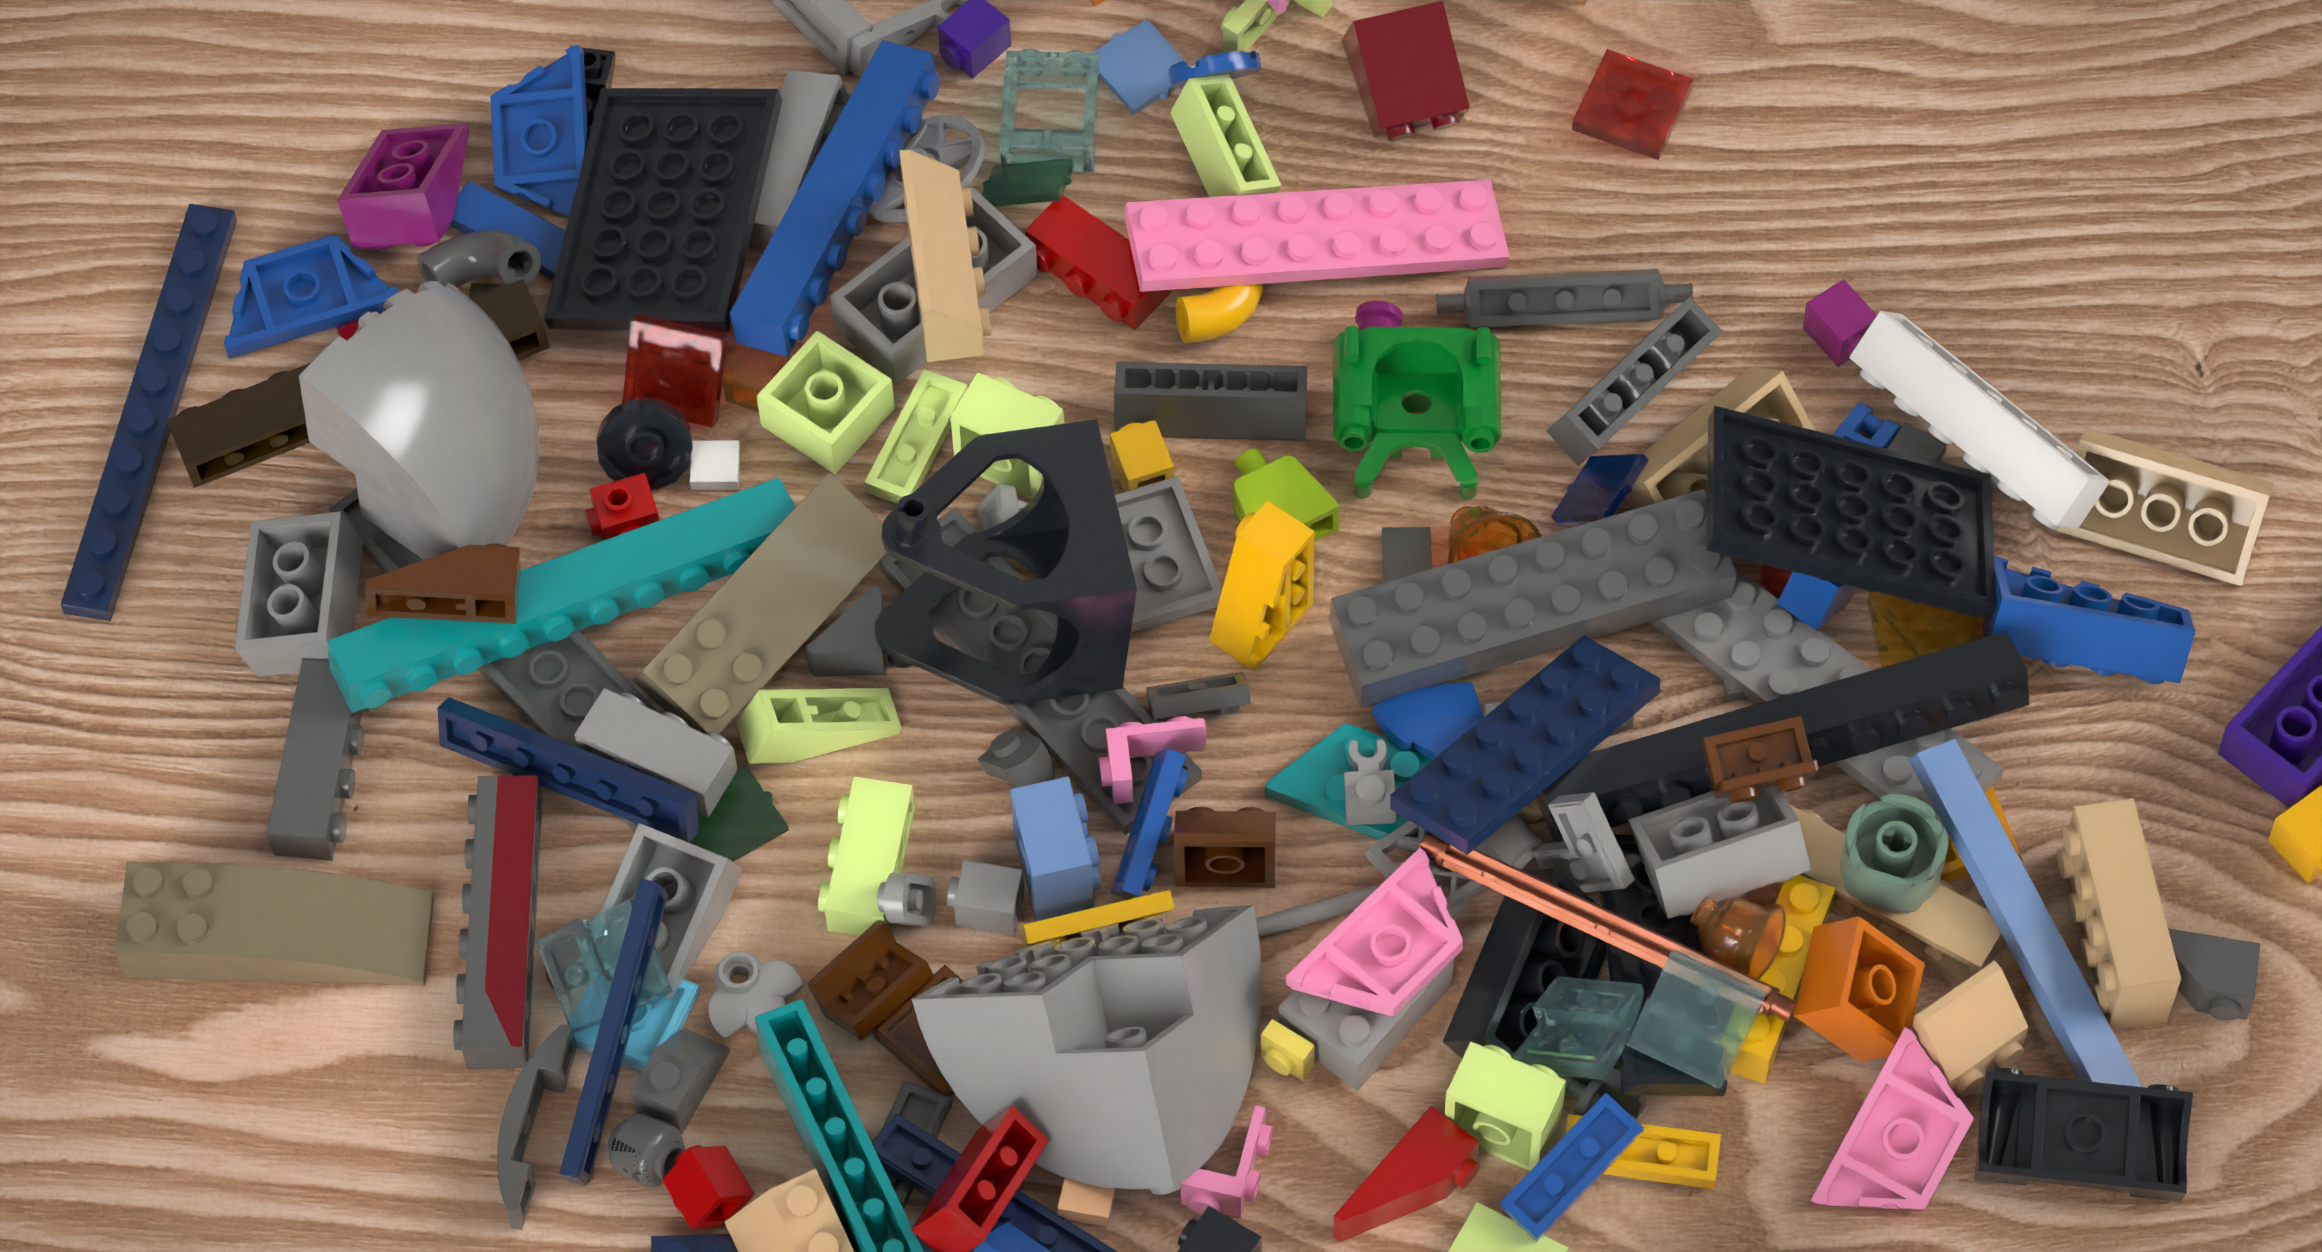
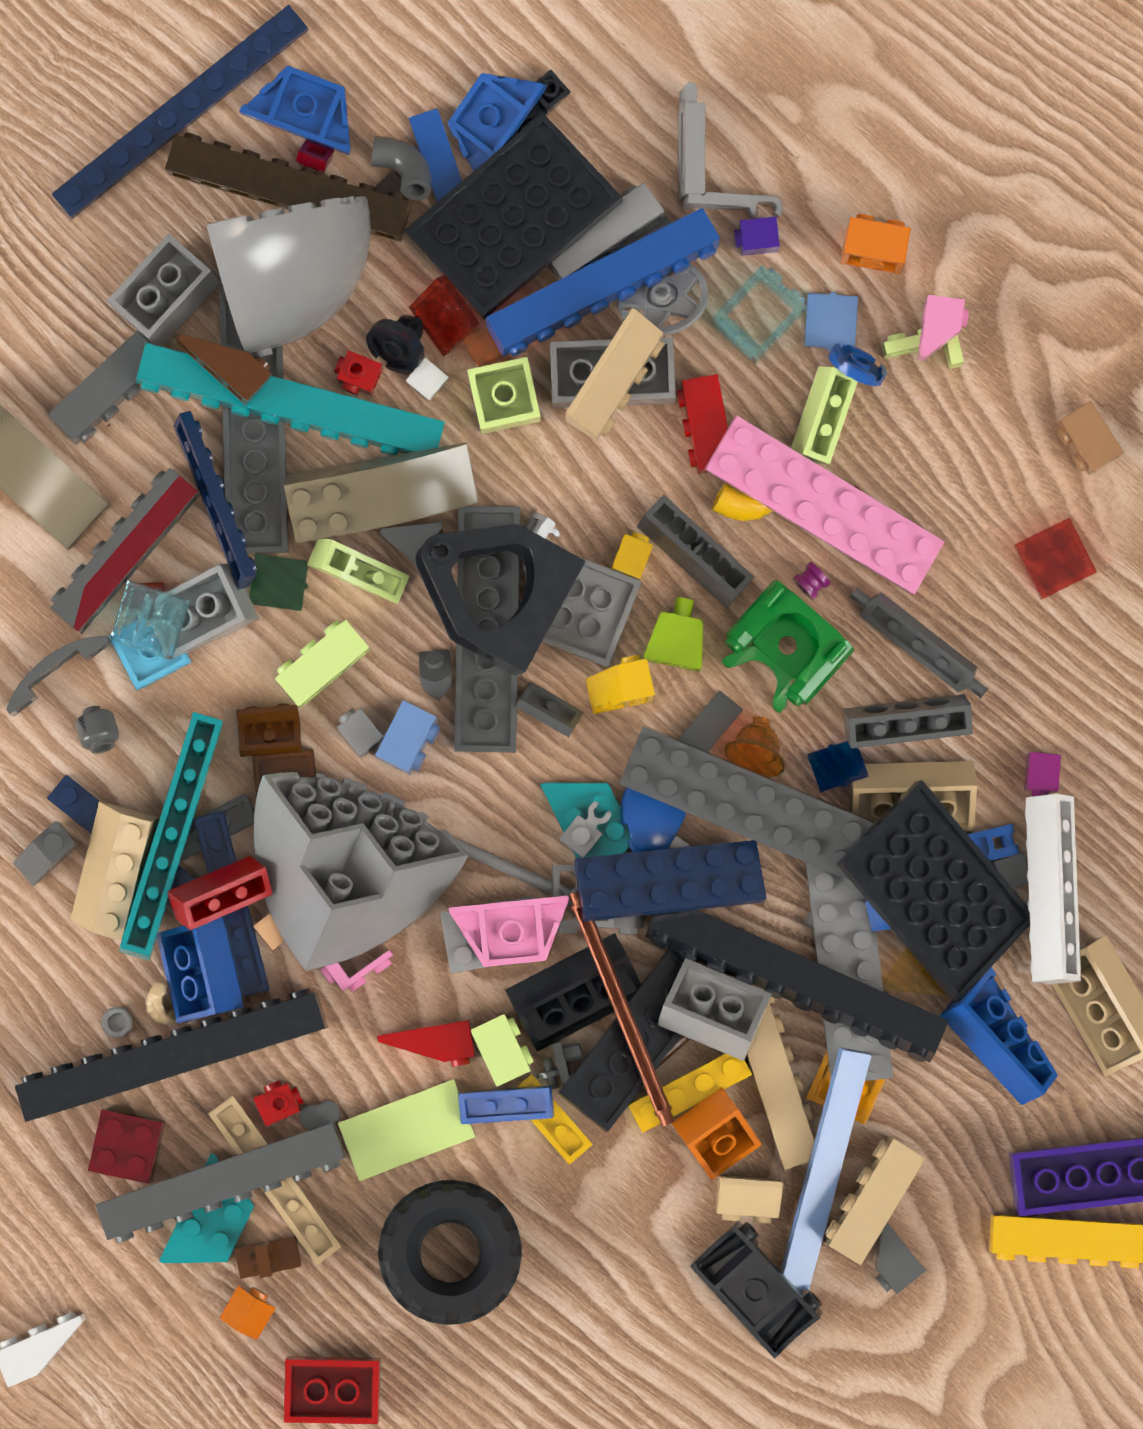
camera: 35 degrees right, 25 degrees up
(405, 187) = (402, 87): magenta slope -> none
(614, 1032) = (124, 663): dark blue tile -> none
(658, 746) = (263, 526): light grey brick -> none
(678, 1077) = (144, 703): dark grey slope -> none
(707, 1186) = (108, 773): red brick -> none
(738, 1004) = (211, 692): light grey plate -> none
(908, 899) = (318, 706): light grey plate -> none
(915, 437) = (534, 449): yellowish green plate -> none
(996, 407) = (574, 493): yellowish green brick -> none
(1028, 182) = (709, 349): clear green piece -> none
(1133, 909) = (402, 787): yellow plate -> none
(1141, 740) = (471, 722): bright pink bracket -> none
(1150, 824) = (463, 763): blue plate -> none
(1225, 848) = (492, 801): reddish brown slope -> none
(1287, 1051) = (429, 931): light yellow plate -> none
(1407, 70) = (956, 445): dark red slope -> none
(1582, 1026) = (567, 1044): clear light blue slope -> none
(1589, 847) = (647, 955): light grey tile -> none
(1697, 1018) = (619, 1091): clear light blue slope -> none
(1741, 933) = (683, 1064): clear orange hat -> none
(1759, 759) = (763, 992): reddish brown bracket -> none
(1894, 853) = (806, 1092): sand green brick -> none
(1898, 1137) = (671, 1216): bright pink wing -> none

